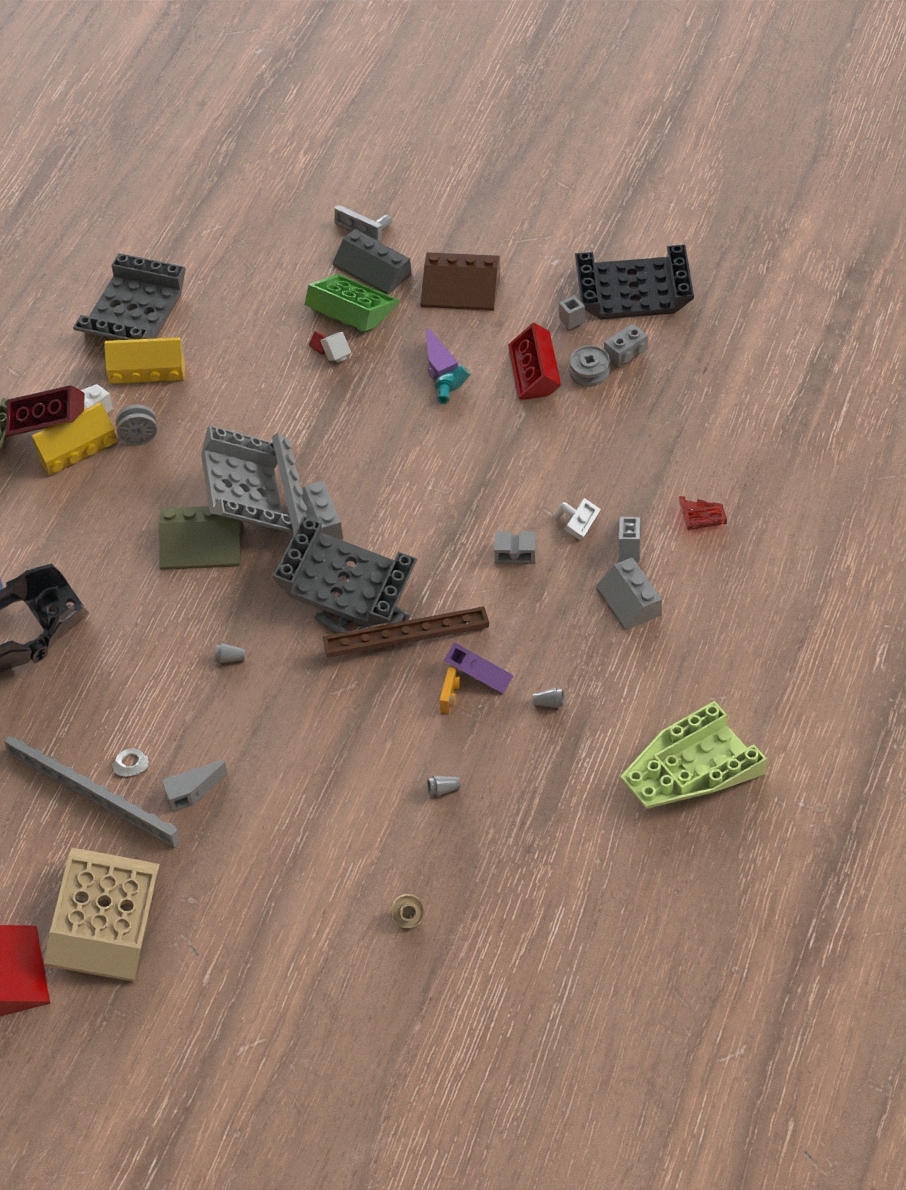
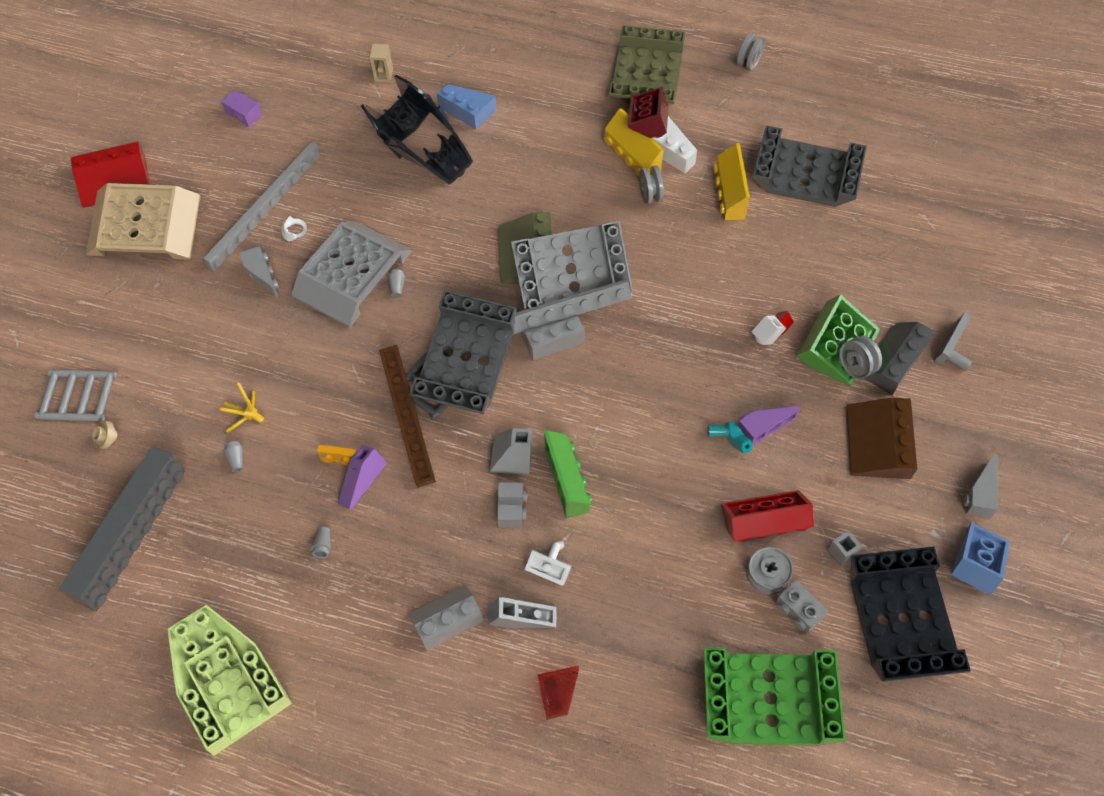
camera: 85 degrees right, 10 degrees up
(227, 708) = (338, 288): none -> light grey slope
(319, 946) = (80, 415): none -> light grey bar
(380, 278) = (860, 357): none -> light grey wheel
(388, 775) = (248, 413): none -> yellow plant
(456, 544) = (512, 452): none -> light grey slope
(486, 504) = (566, 474): none -> bright green slope
(518, 223) = (983, 496): none -> light grey slope
(530, 864) = (123, 529): none -> dark grey brick
(583, 232) = (981, 559): none -> medium blue slope
(705, 350) = (804, 690): none -> bright green slope

